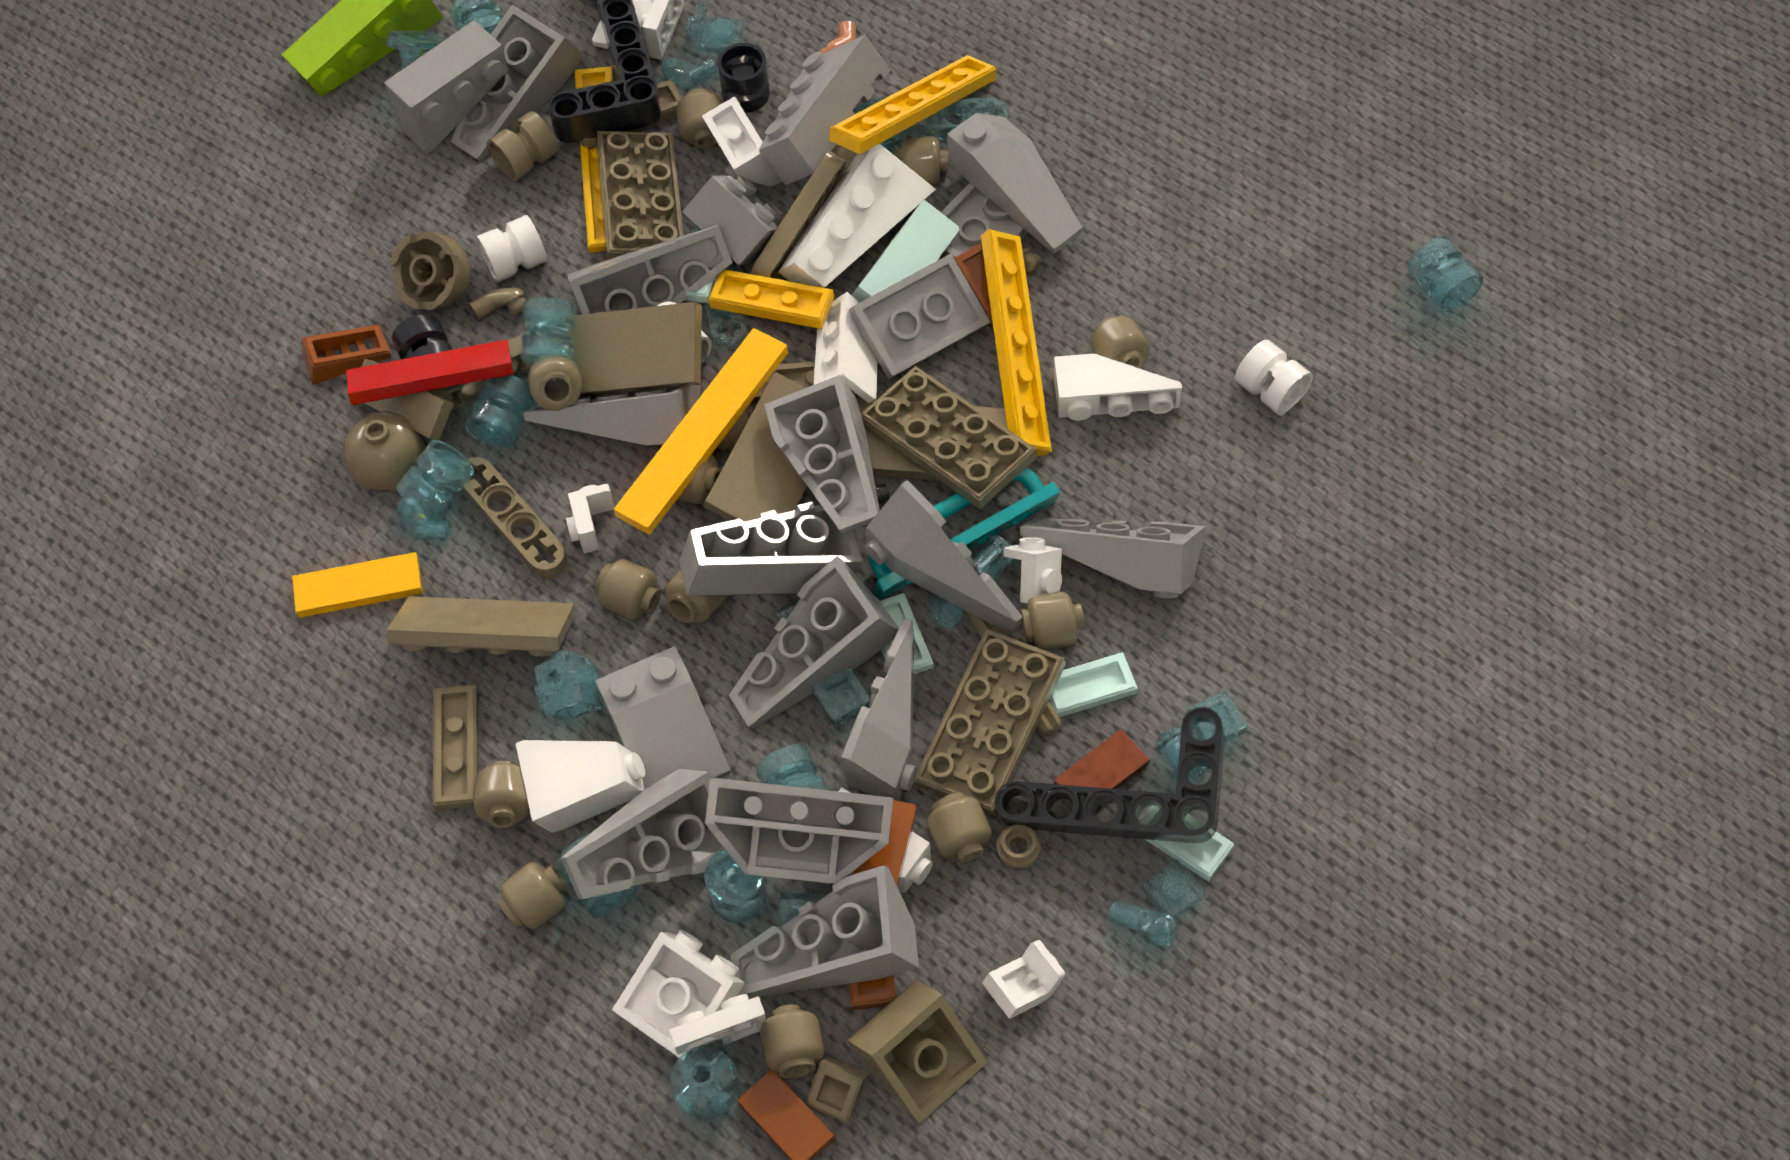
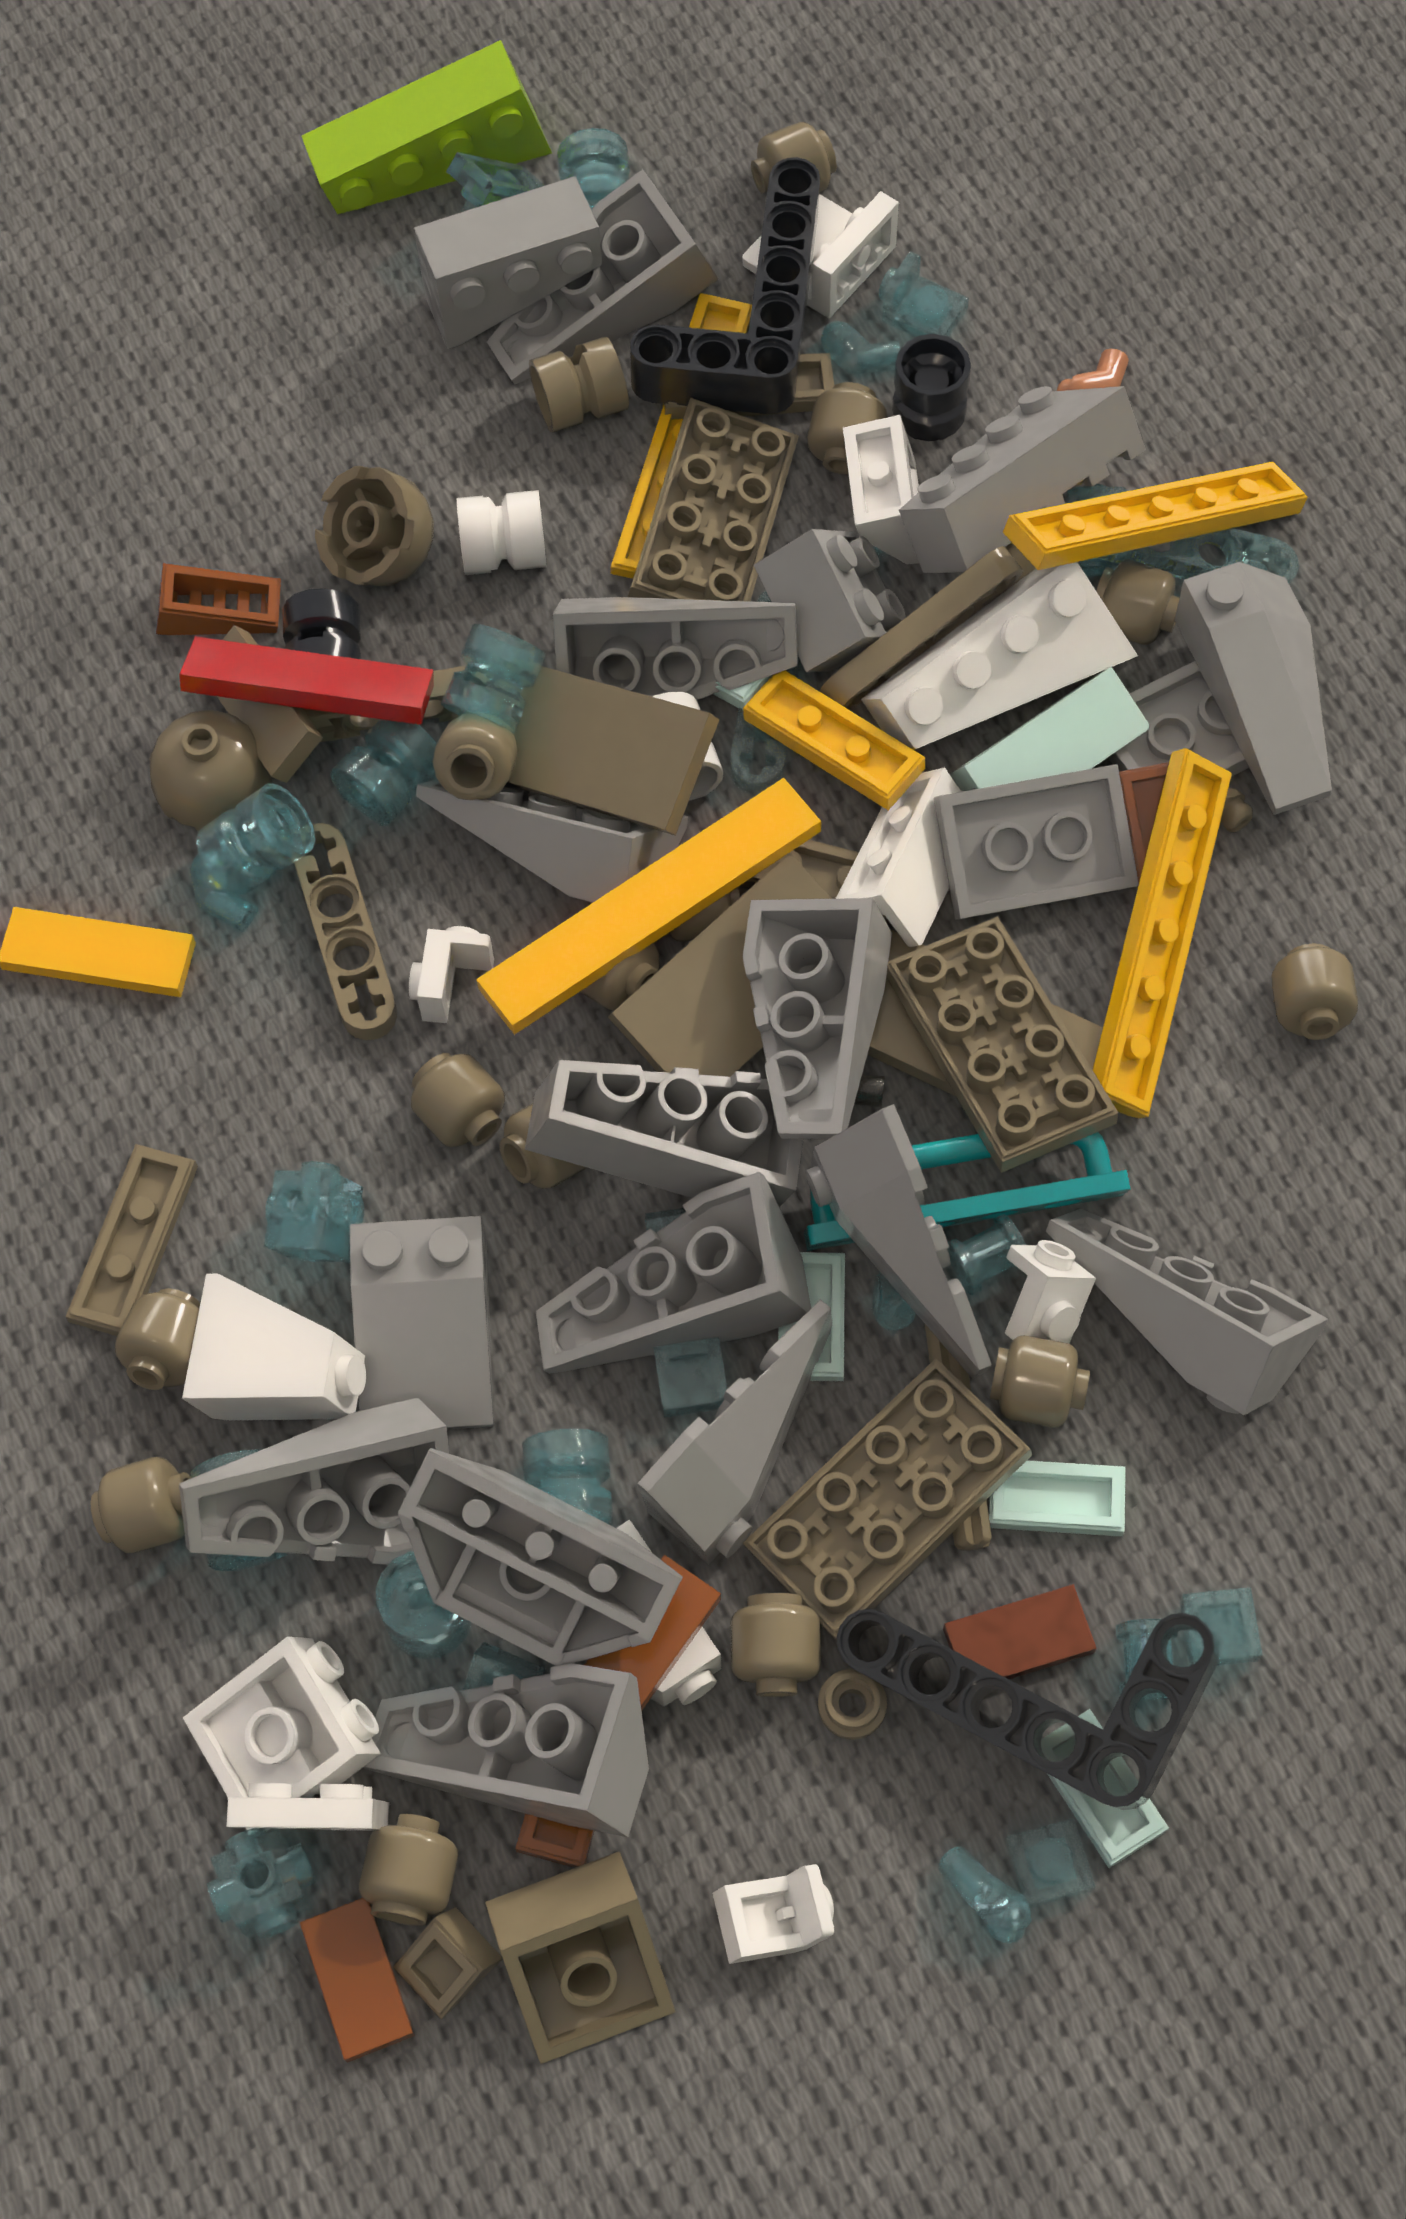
camera: 20 degrees right, 5 degrees up
(481, 624) = (233, 1078): dark tan tile -> none
(495, 299) = (453, 599): dark tan arm -> none
(1101, 385) = (1262, 1045): white slope -> none

